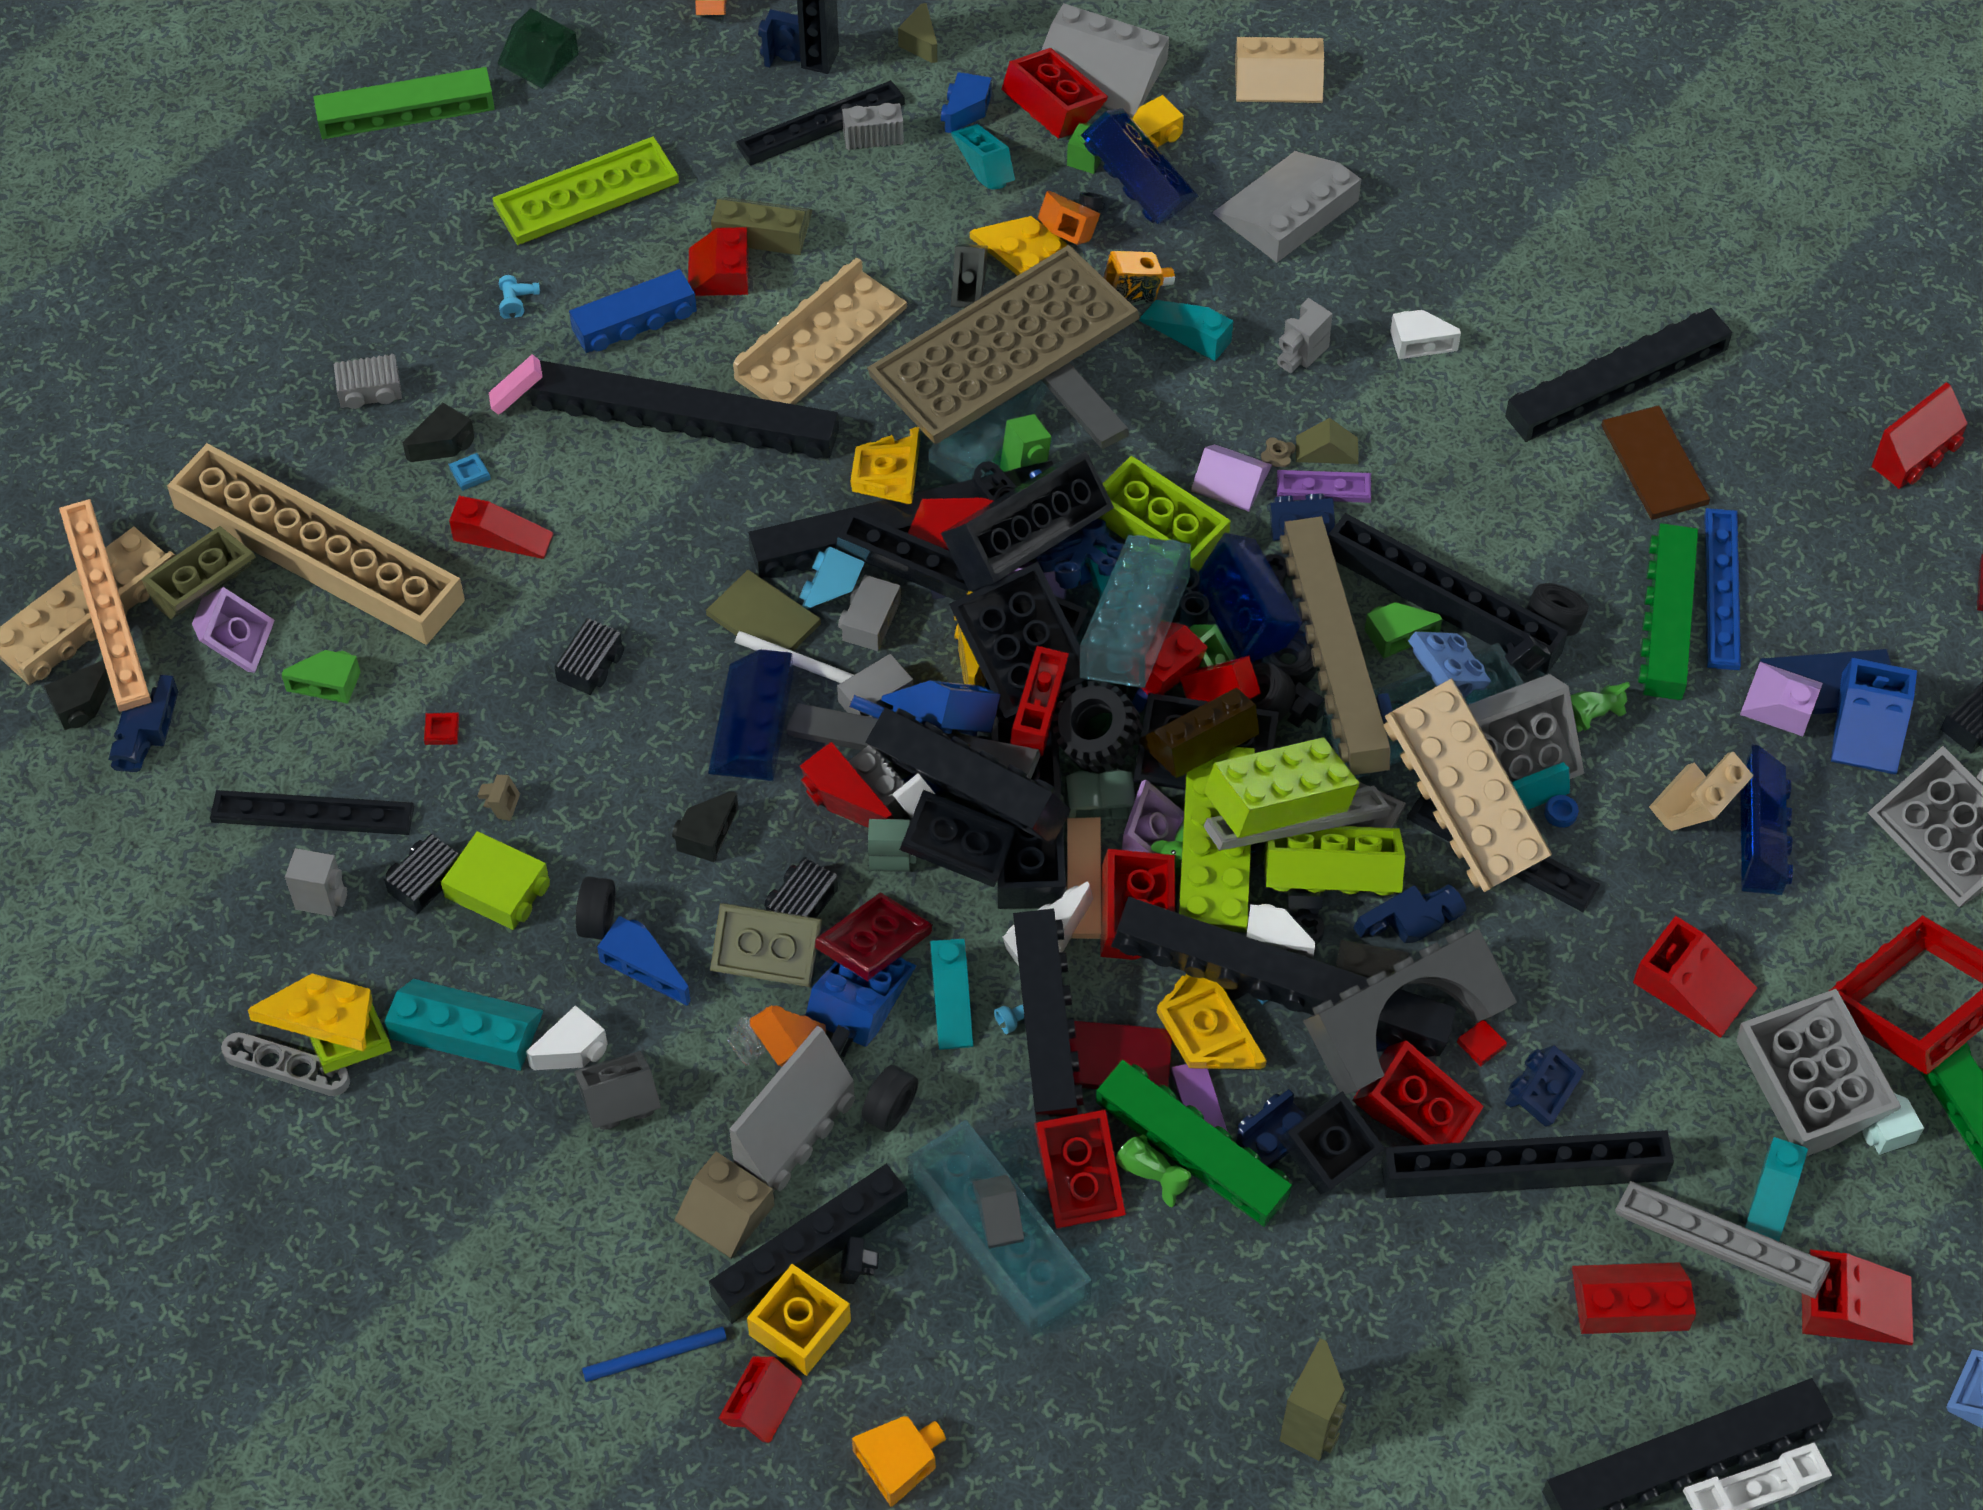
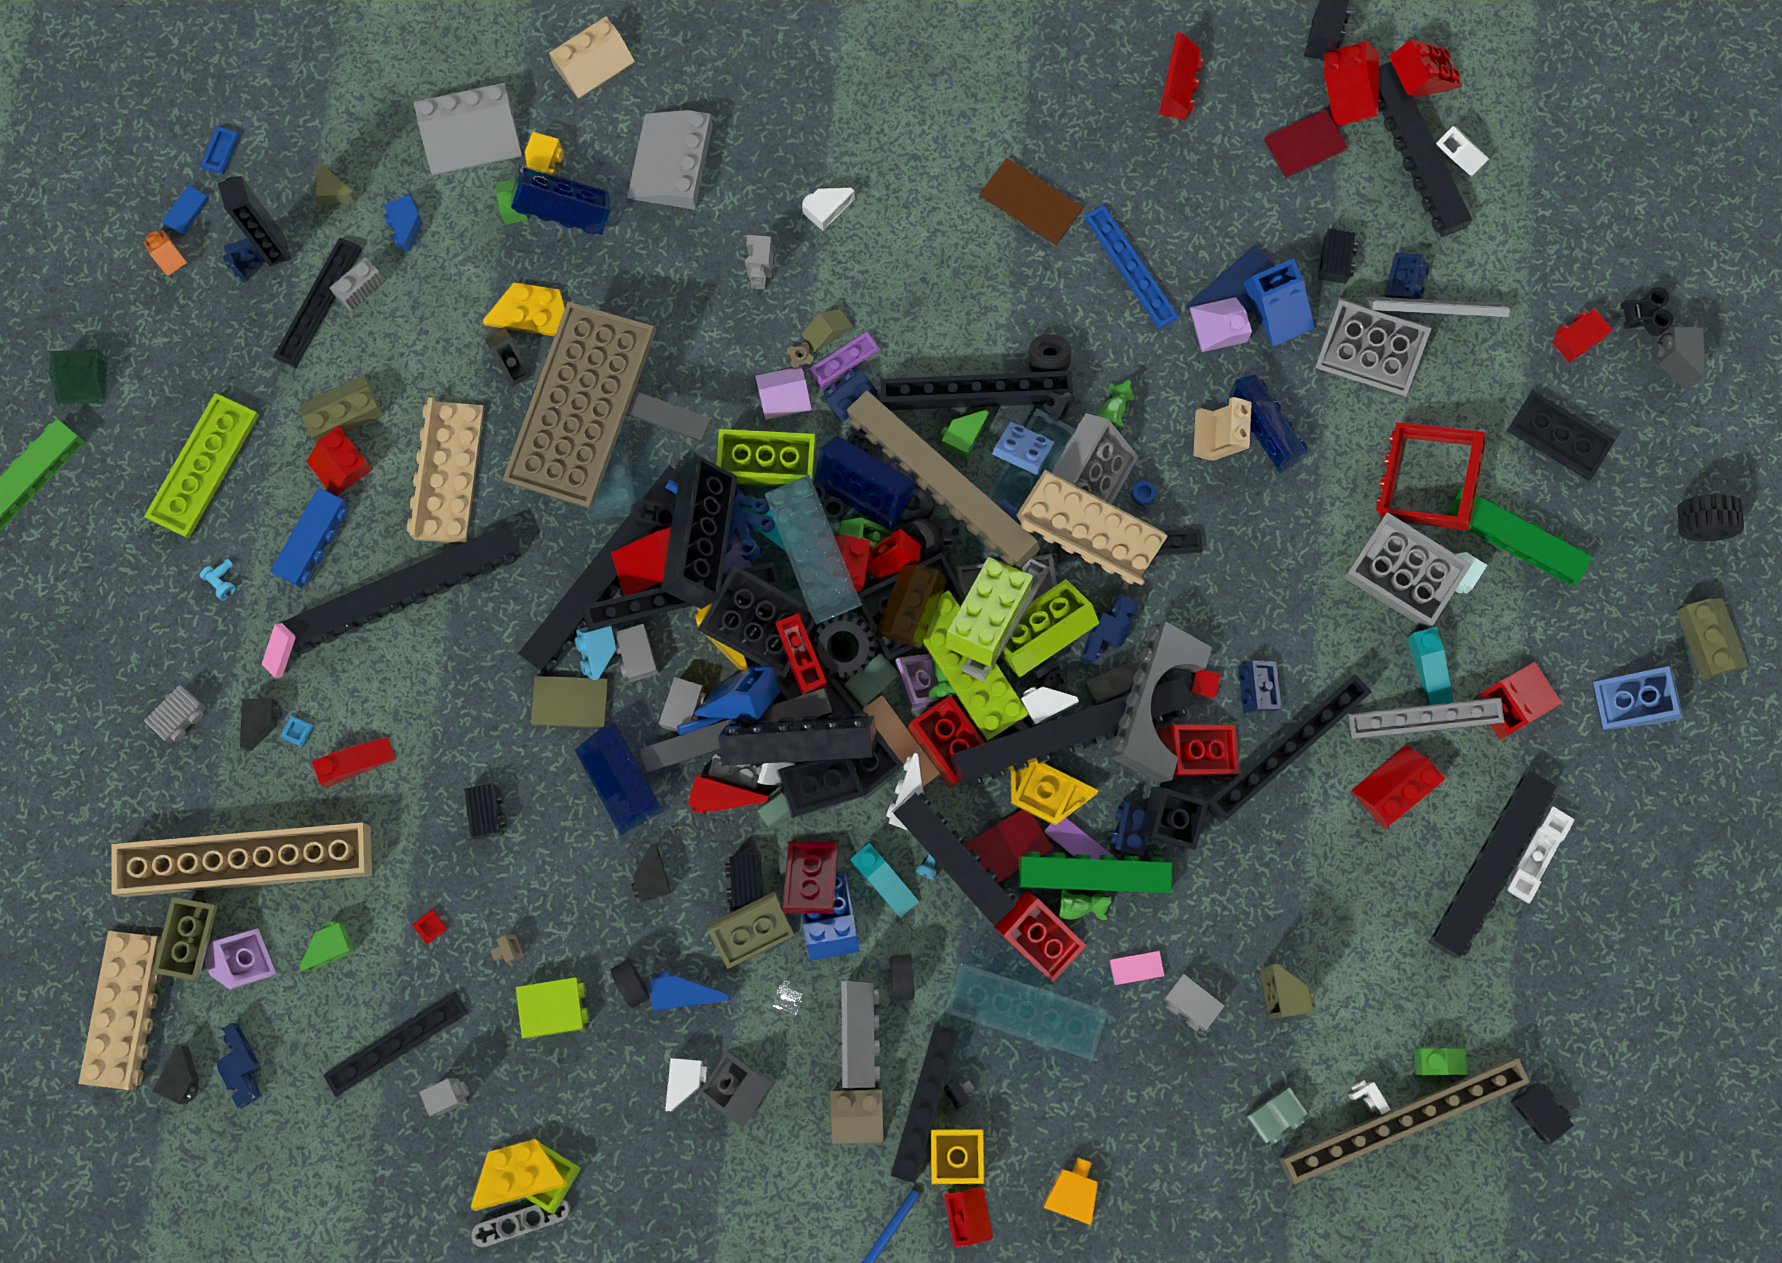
camera: 35 degrees left, 20 degrees up
(105, 606) = (143, 1007): light nougat tile -> none
(420, 874) = (502, 1036): black brick -> none
(462, 1023) = (607, 1113): teal slope -> none
(782, 1031) = (817, 983): orange slope -> none
(798, 659) = (618, 718): white bar -> none
(842, 1040) = (847, 963): black tile -> none
(887, 467) = (567, 541): yellow wing -> none
(985, 155) = (448, 256): teal slope -> none
(999, 1211) = (1024, 1008): dark grey slope -> none
(1024, 443) = (647, 468): bright green slope -> none
(1052, 91) = (457, 176): red slope -> none
(1068, 218) = (540, 271): orange slope -> none
(1091, 201) = (544, 246): black plate -> none
(1137, 275) = (619, 286): light orange torso -> none
(1165, 1278) = (1136, 968): none -> bright pink tile
(1191, 325) = (676, 298): teal slope -> none
(1201, 1354) = (1193, 1003): none -> light grey brick
(1543, 785) = (1123, 486): teal tile -> none
(1618, 374) = (967, 152): black brick -> none
(1670, 612) = (1114, 308): green brick -> none
(1694, 977) = (1296, 555): red slope -> none

